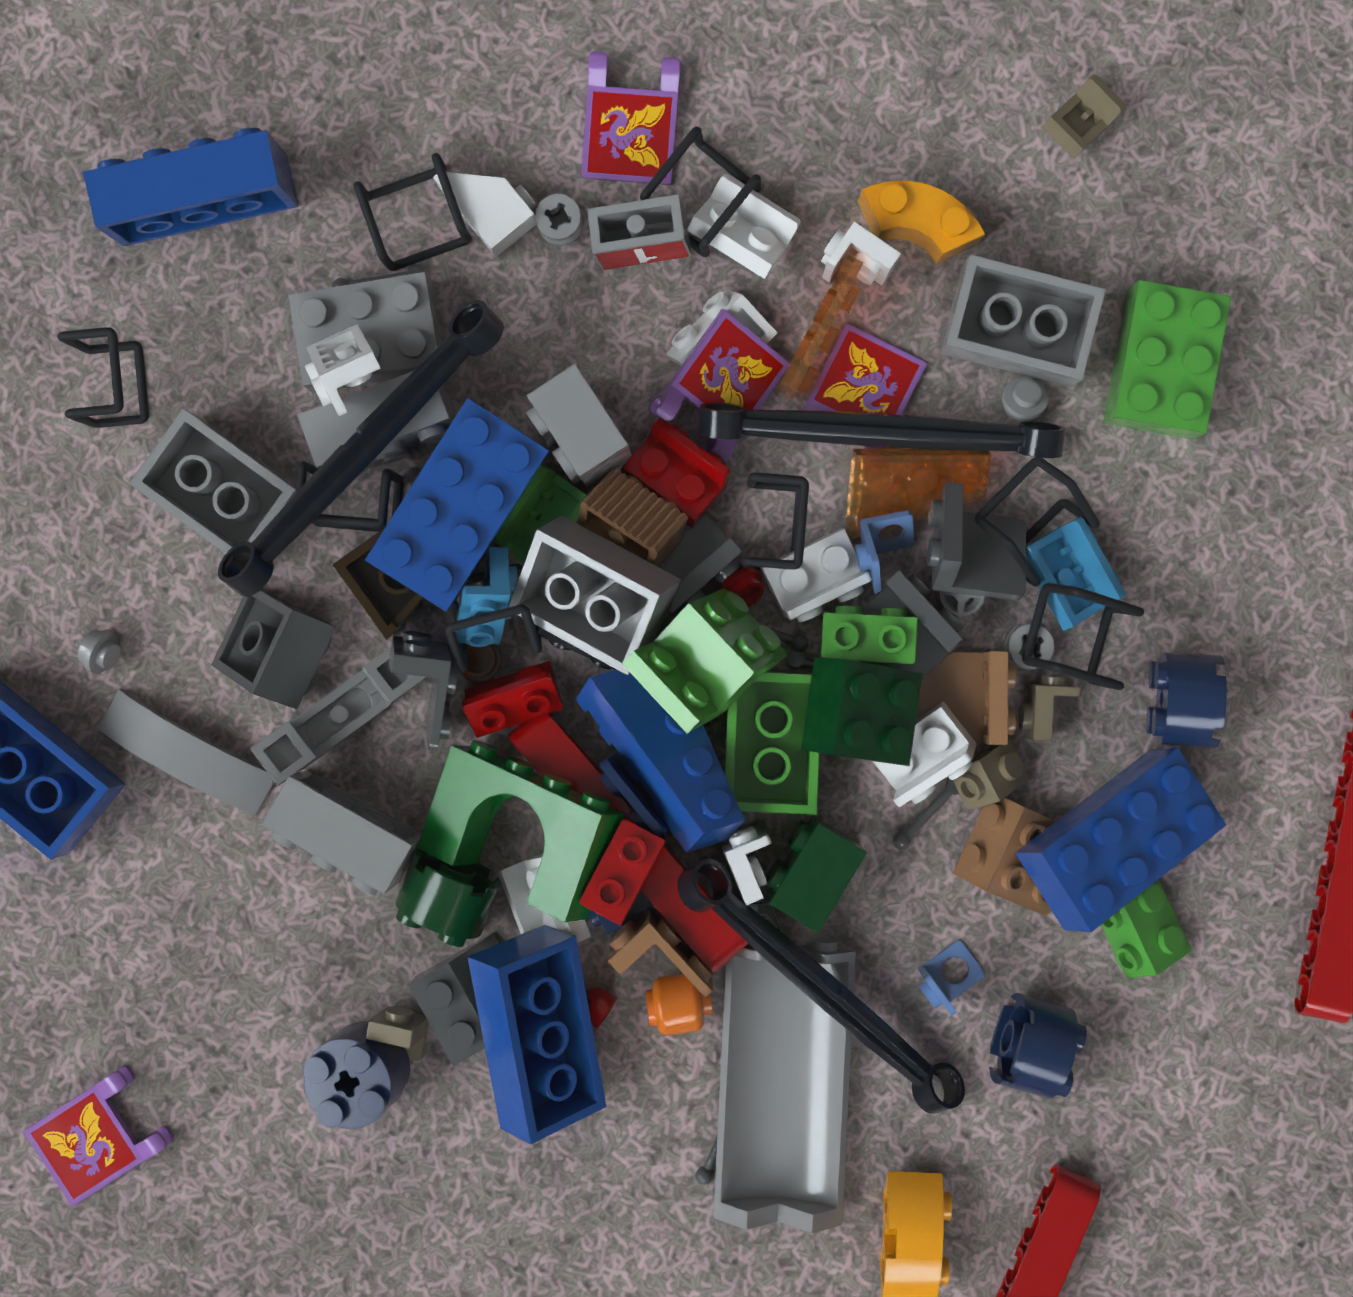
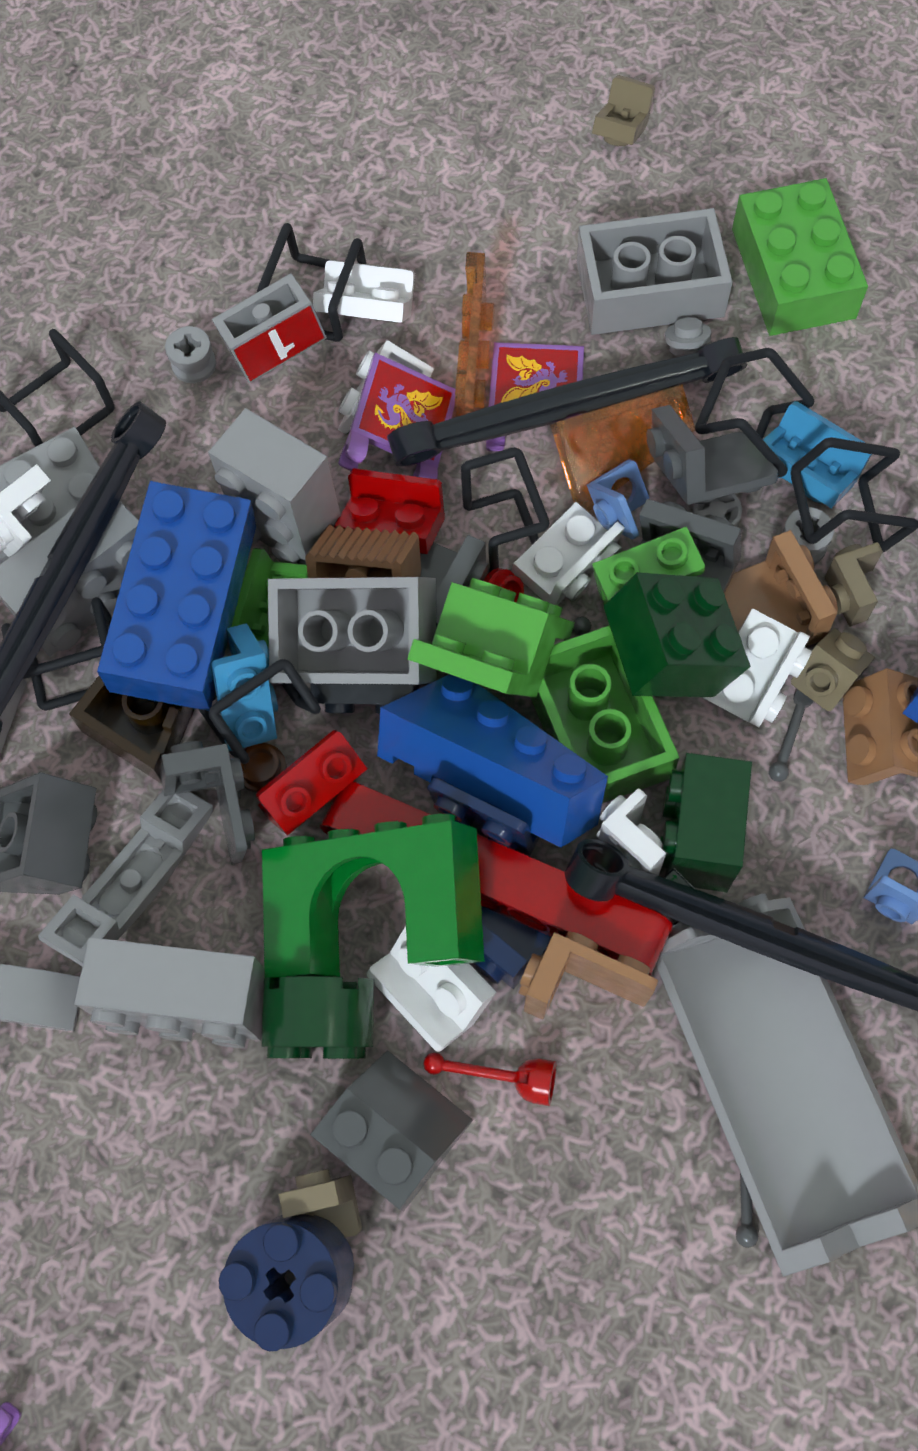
camera: 15 degrees left, 20 degrees down
(493, 208) = (128, 363): white slope -> none
(537, 1032) = (482, 1125): blue brick -> none
(622, 872) = (501, 885): red bracket -> none
(629, 129) = (224, 266): flag -> none
(676, 1005) = (626, 1036): orange head -> none
(861, 244) = (500, 265): white bracket -> none
(920, 215) = (521, 230): light orange brick -> none

